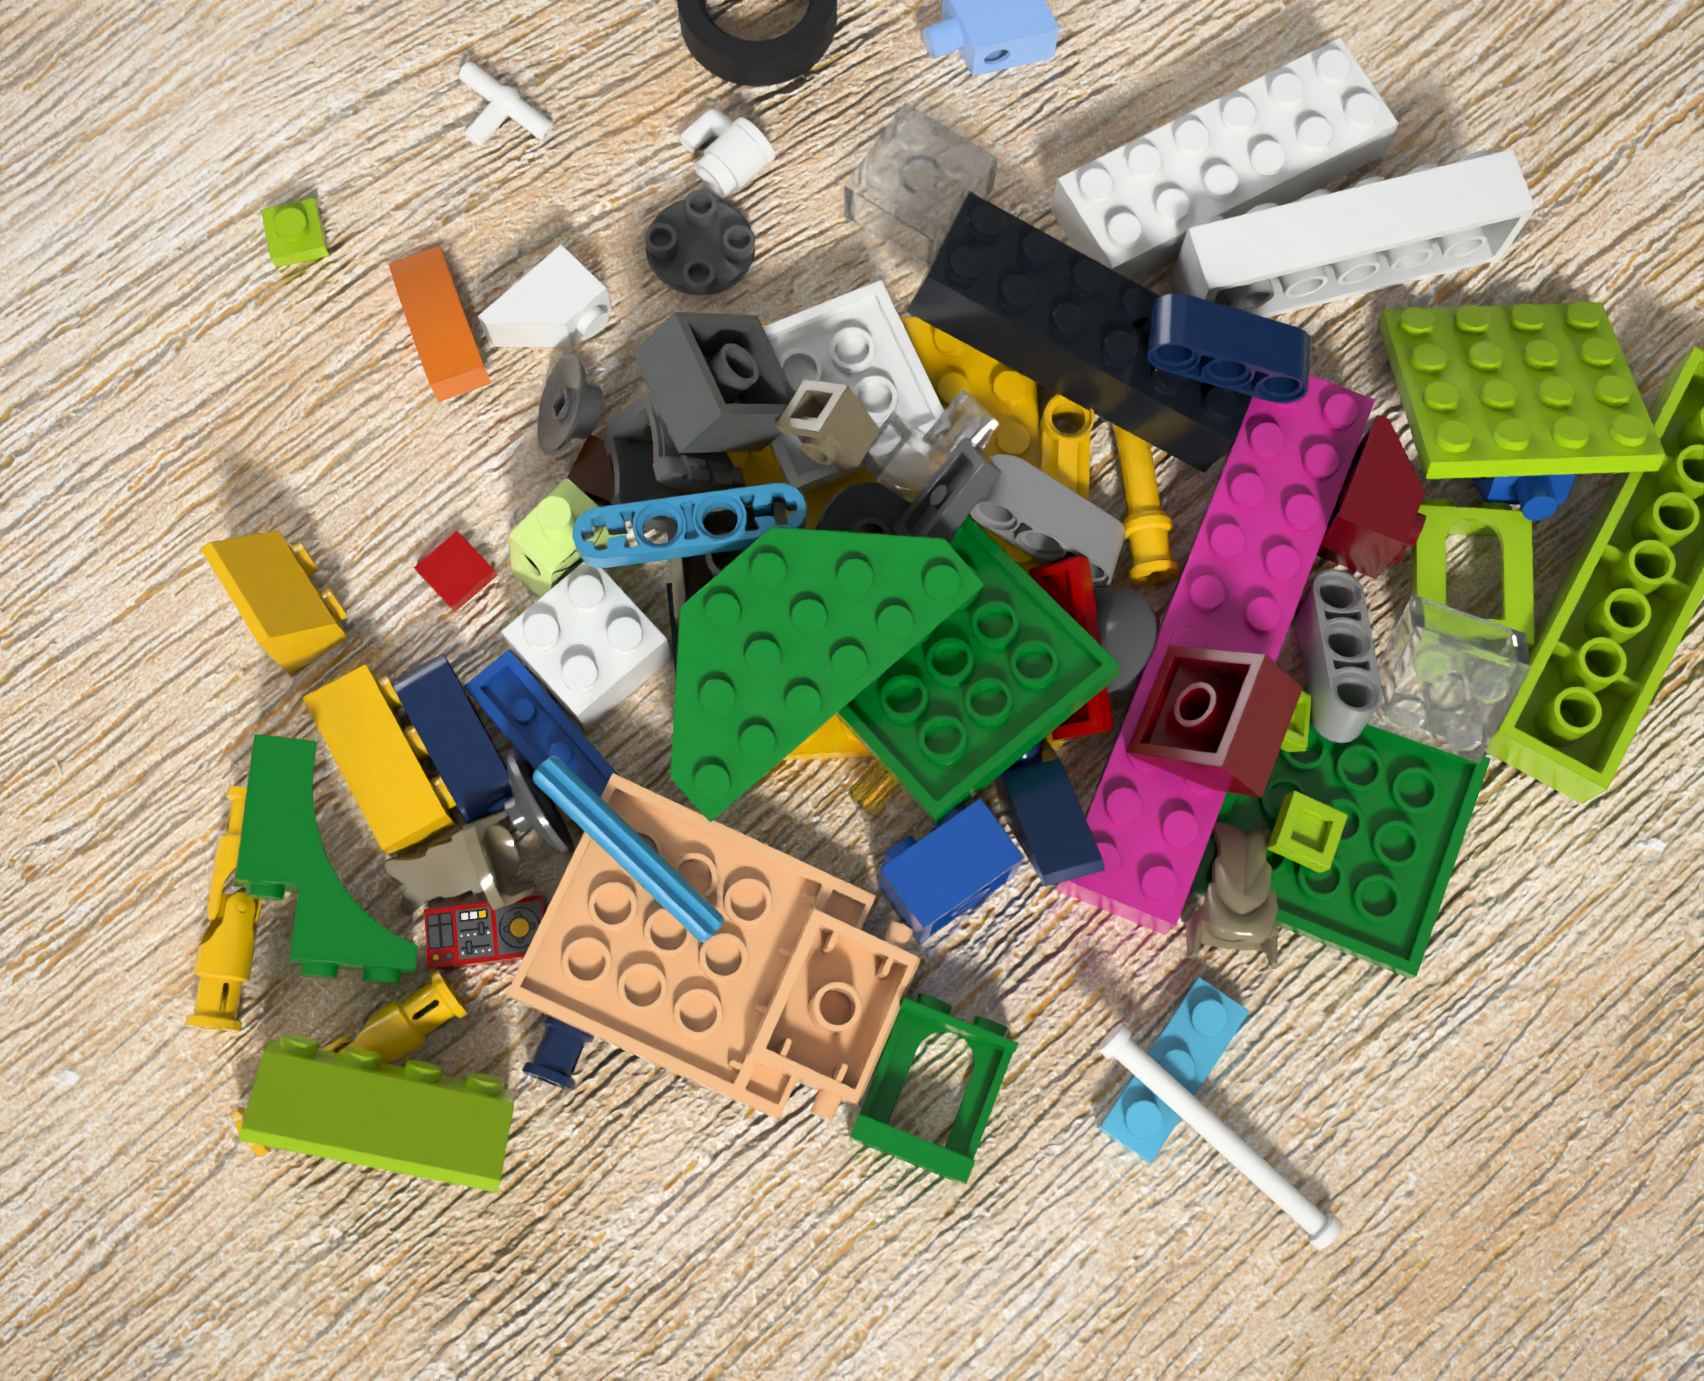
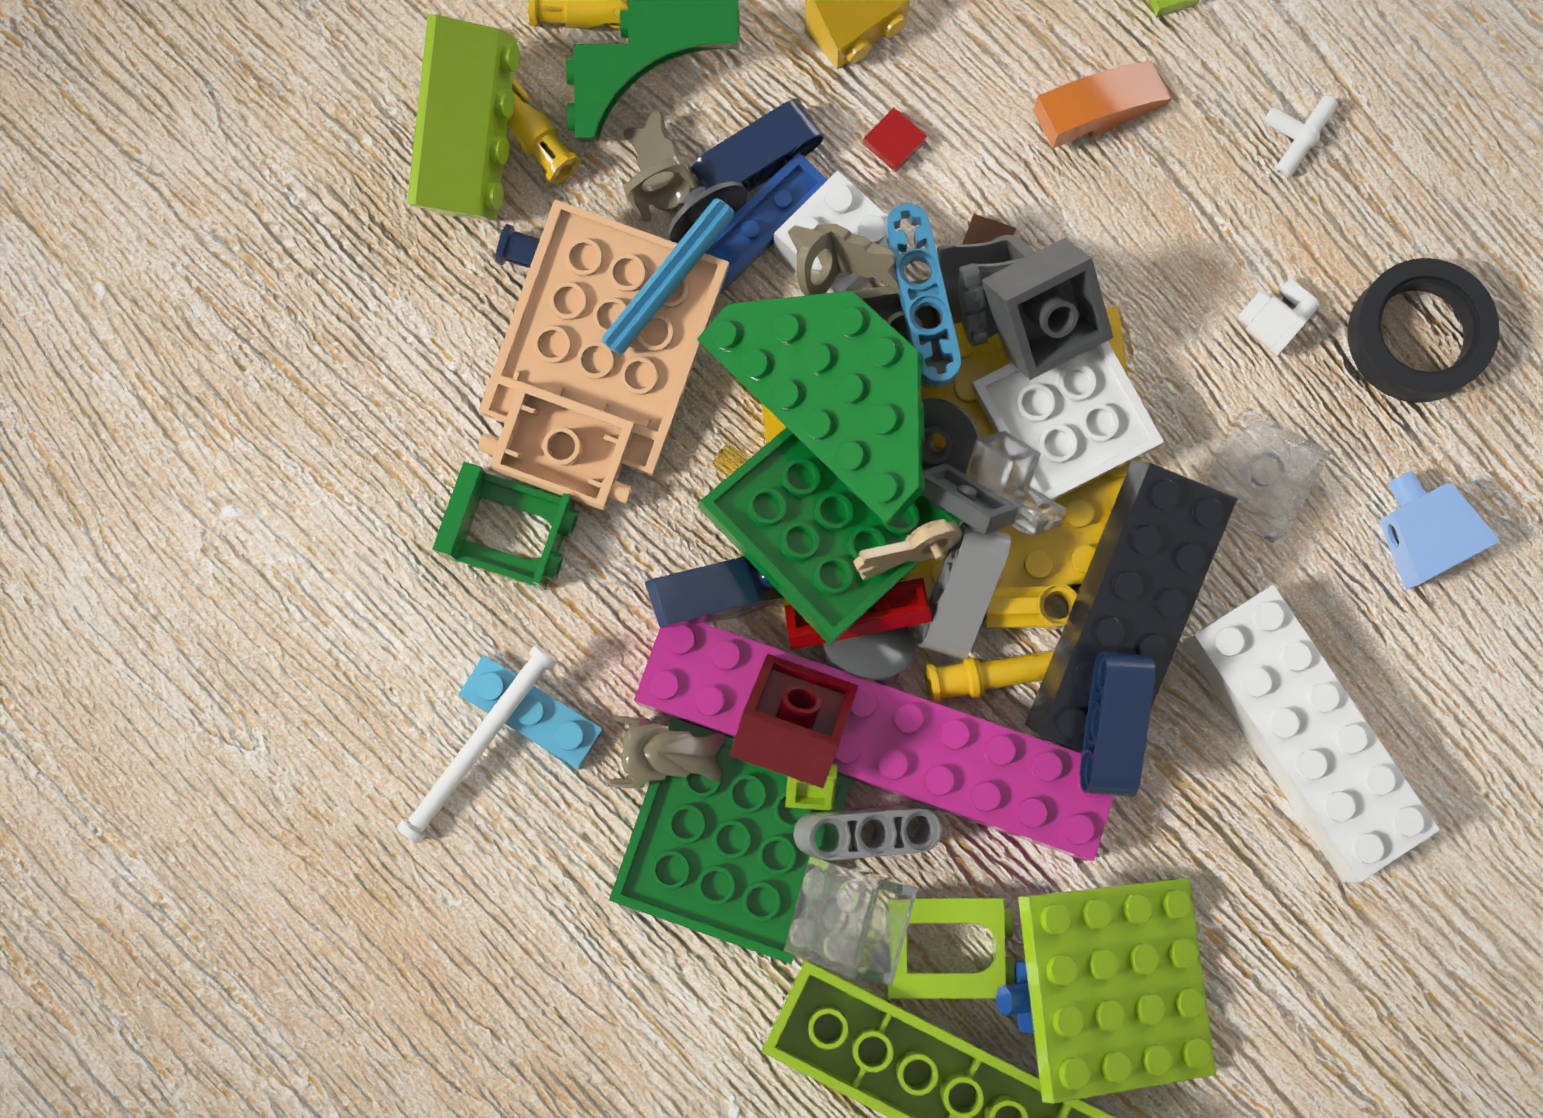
camera: 90 degrees right, 5 degrees up
(381, 760) = (735, 96): yellow brick -> none
(479, 935) = (607, 174): tile -> none
(547, 540) = (941, 207): yellowish green torso -> none
(549, 306) = (1123, 186): white slope -> none
(568, 405) = (1036, 209): dark grey piece -> none
(617, 625) = (839, 252): none -> dark tan hair
(700, 245) = (1191, 302): dark grey dish -> none
(829, 424) = (1019, 398): dark tan brick -> none
(948, 869) = (667, 521): blue brick -> none
(1002, 557) = (923, 543): none -> tan piece
(1307, 831) = (716, 806): lime plate -> none
(1357, 237) = (1244, 843): white brick -> none
(1376, 506) = (999, 859): dark red slope -> none

